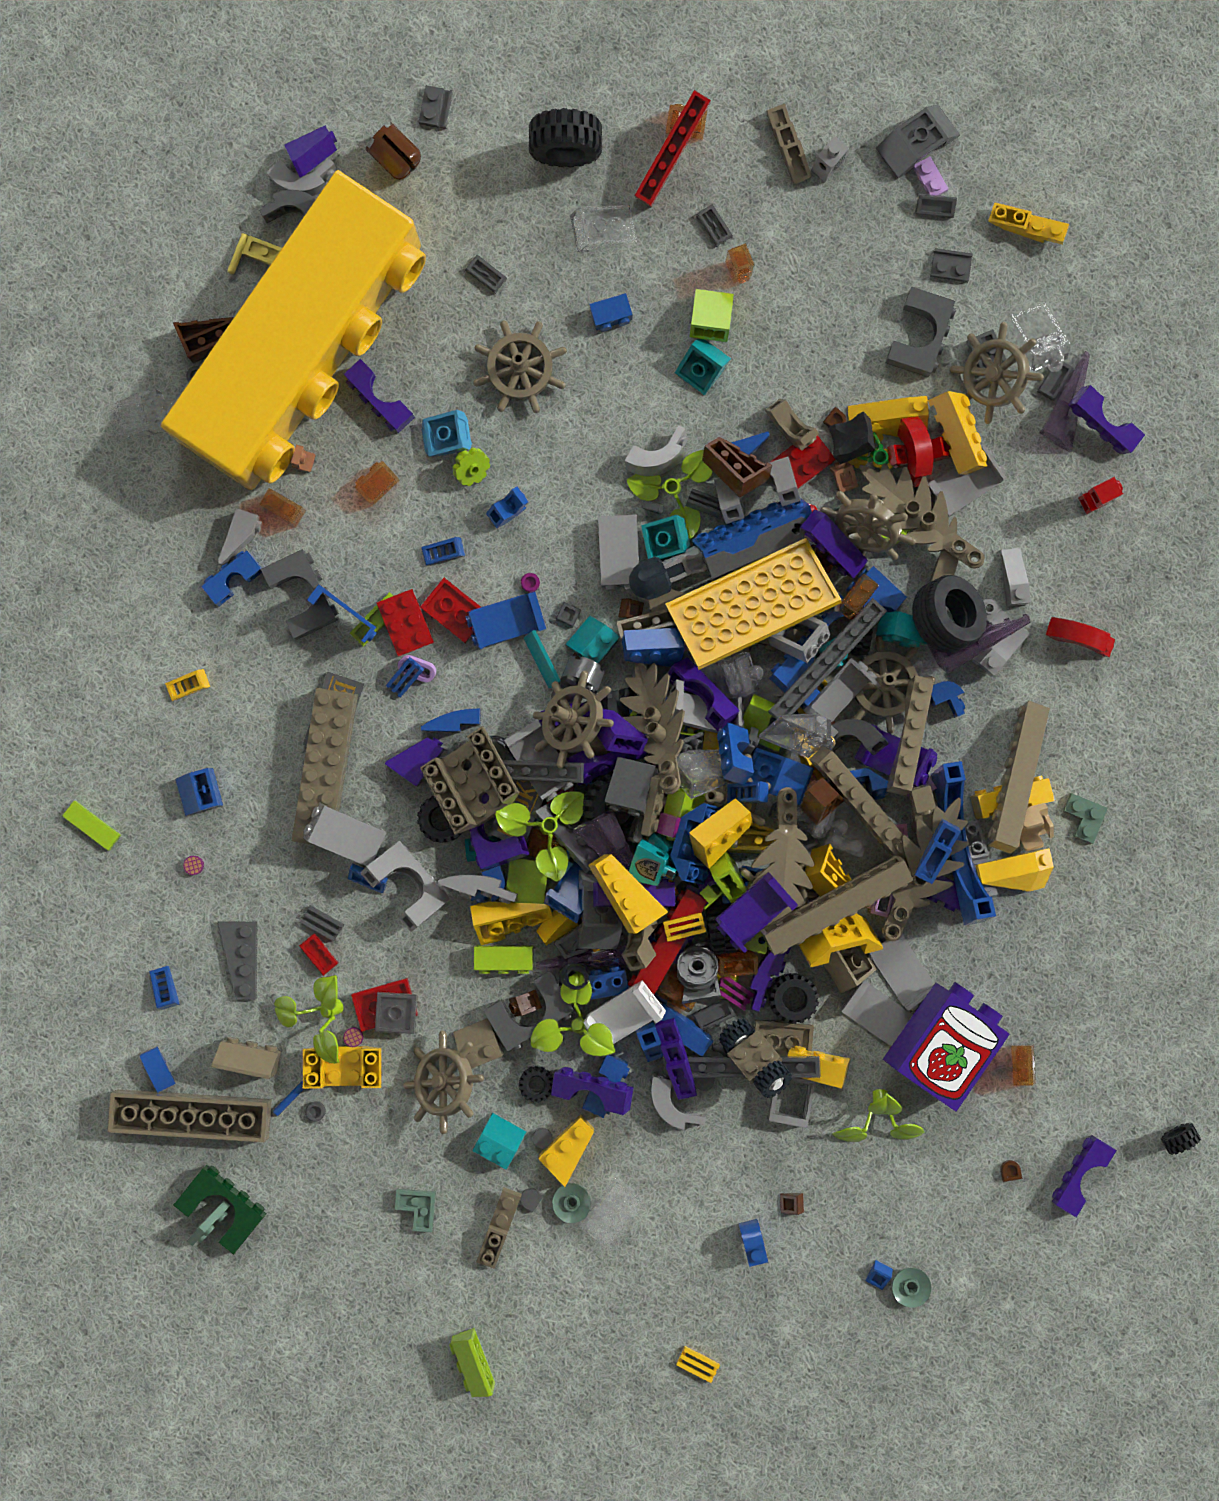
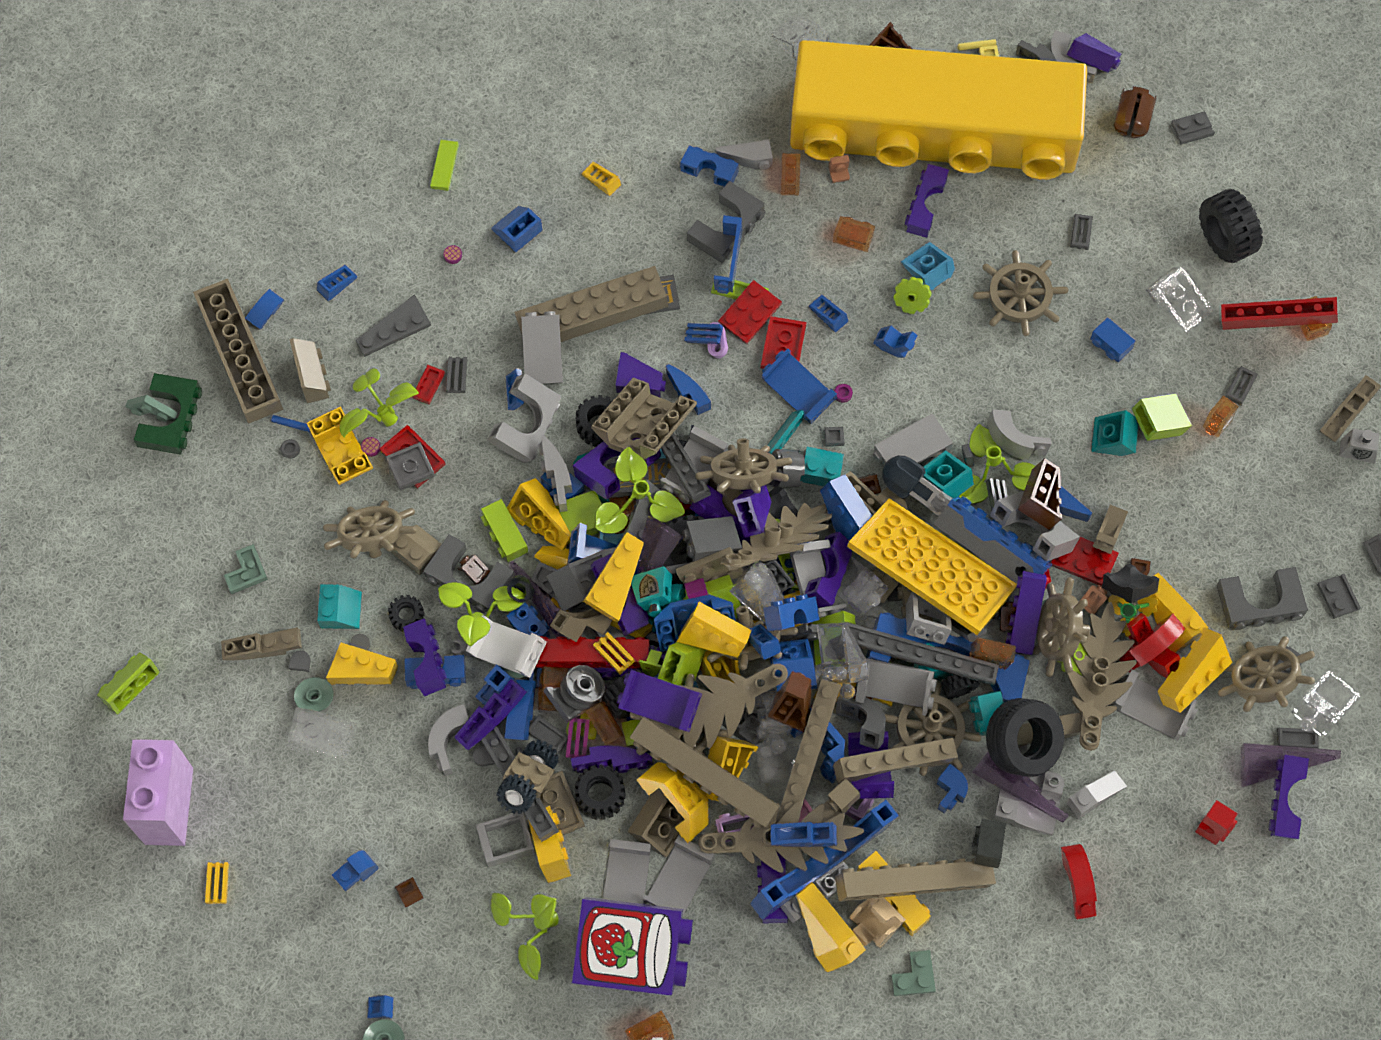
camera: 60 degrees right, 20 degrees down
(605, 1390) = (158, 792): none -> lavender brick
(1018, 695) = (988, 843): none -> pearl dark grey brick

